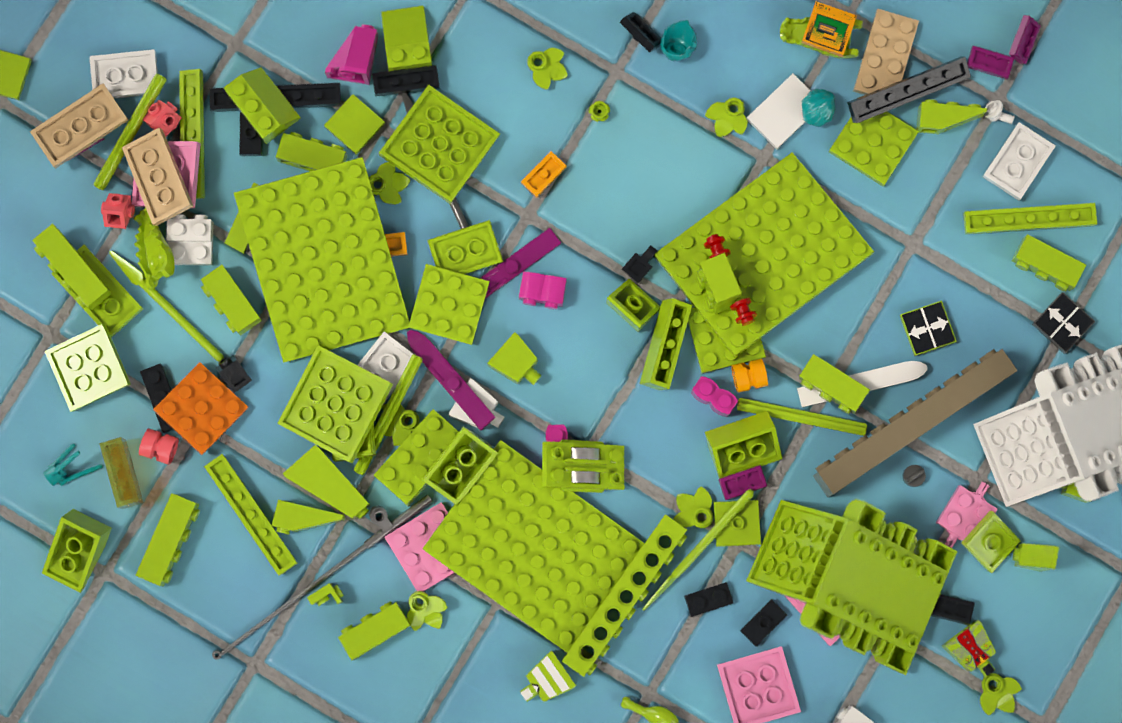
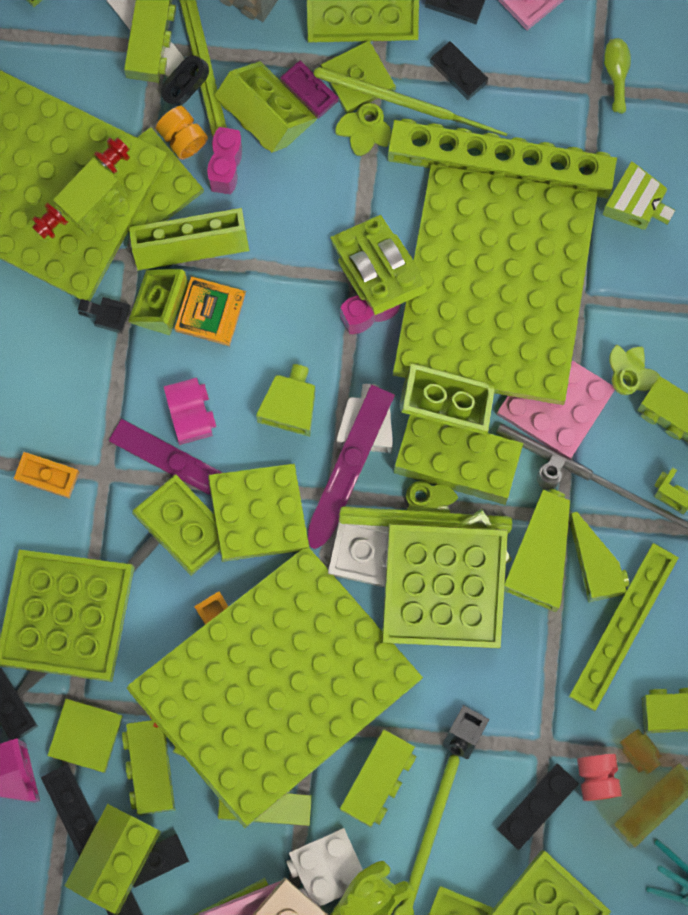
camera: 115 degrees left, 5 degrees down
(162, 483) = (641, 752): none -> clear yellow brick
(200, 408) = (528, 749): orange plate -> none
(391, 183) = (140, 654): lime plate -> none
(609, 337) = (210, 311): none -> light orange tile
(788, 397) = (184, 78): none -> black plate

